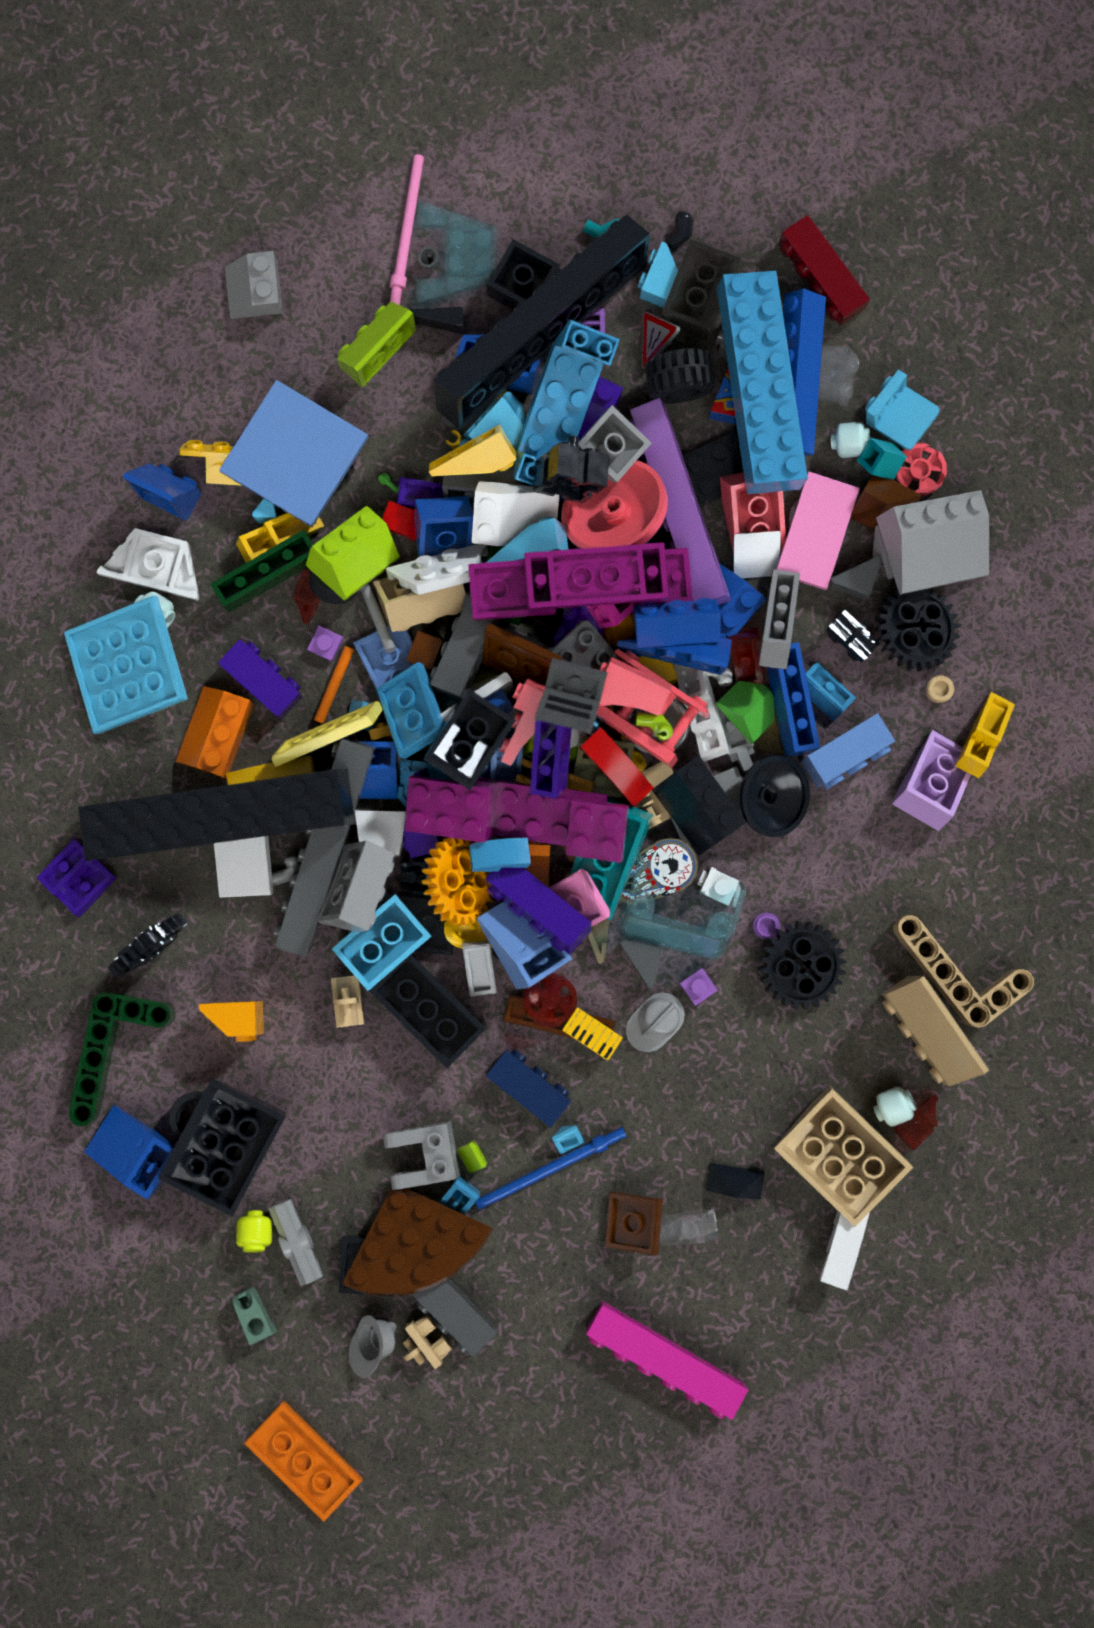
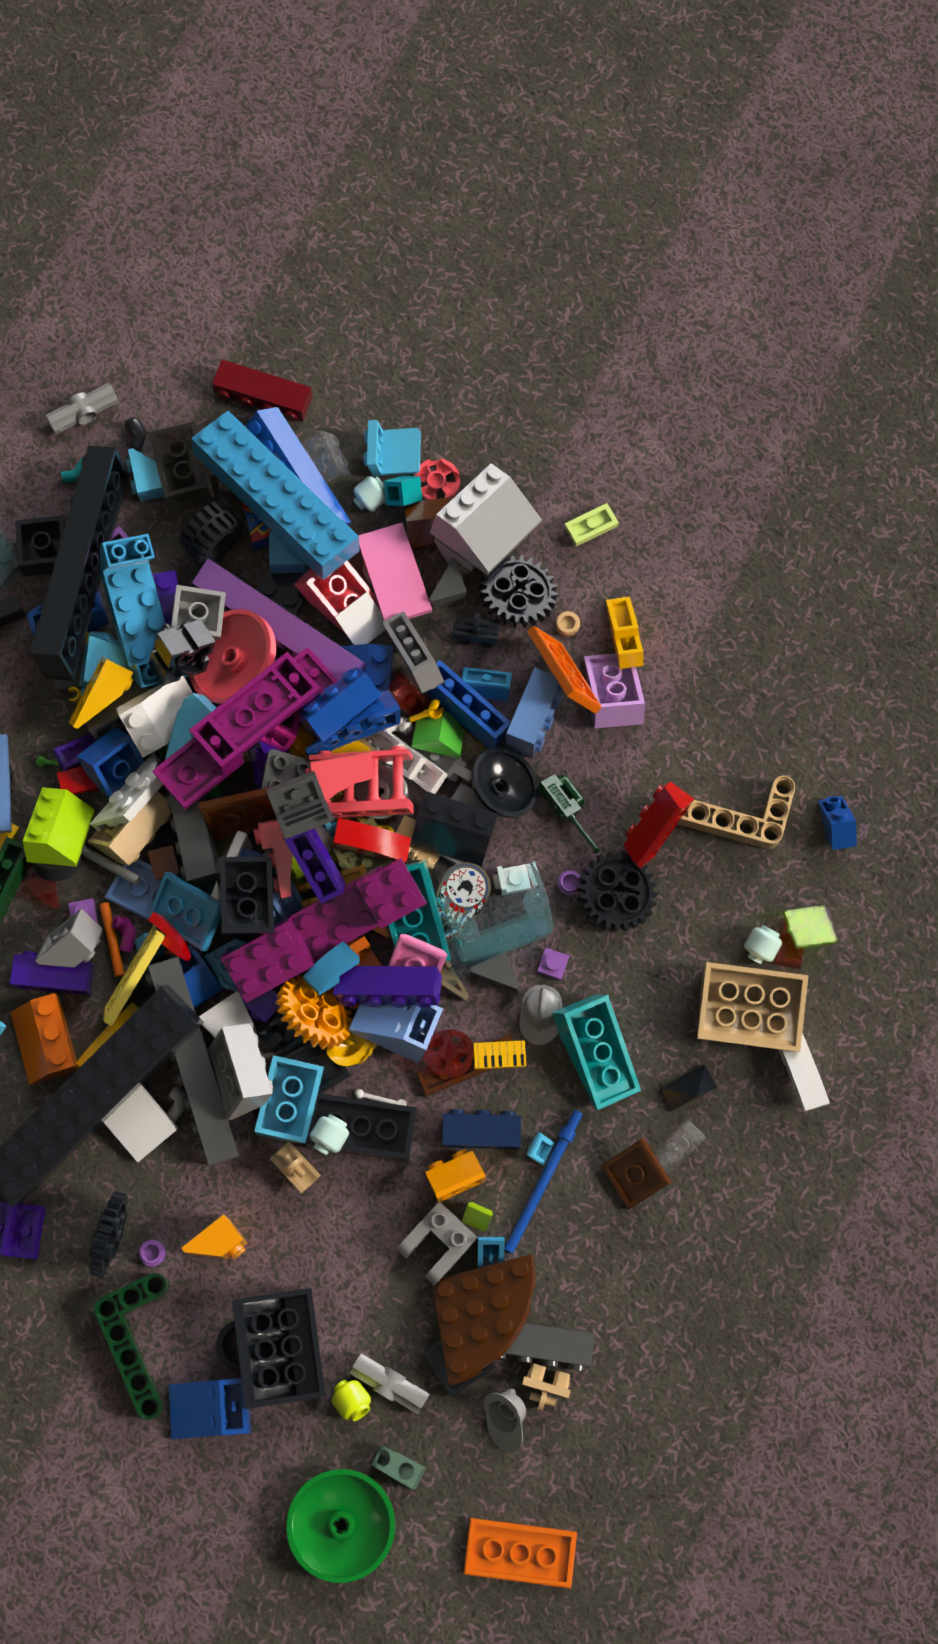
camera: 35 degrees left, 10 degrees down
(152, 1348) = (314, 1533): none -> green dish
(177, 983) = (152, 1253): none -> medium lavender plate
(294, 664) = (71, 942): none -> light grey slope
(352, 687) = (127, 931): none -> magenta arm
(381, 730) = (173, 939): none -> red slope
(392, 1000) = (329, 1134): none -> light aqua head
(477, 1010) = (359, 1093): none -> white hinge
(477, 1109) = (455, 1175): none -> light orange slope
(479, 968) = (378, 1069): light grey tile -> none
(649, 172) = (82, 408): none -> light grey piece
(656, 336) = (172, 518): piece -> none
(658, 724) = (377, 786): lime arm -> none
(666, 1360) = (738, 1259): dark pink brick -> none
(680, 1091) = (597, 1049): none -> teal slope
(726, 445) = (282, 558): none -> dark azure slope
(758, 685) = (432, 712): none -> yellow hand
(811, 850) = (565, 808): none -> dark green piece
(881, 933) = (656, 823): none -> red slope
(903, 734) = (564, 669): none -> orange tile
(933, 1031) = (748, 866): tan slope -> none
(948, 1122) = (810, 927): none -> clear neon green piece
(1030, 612) = (591, 524): none -> yellowish green plate
(1045, 1048) = (838, 822): none -> blue slope

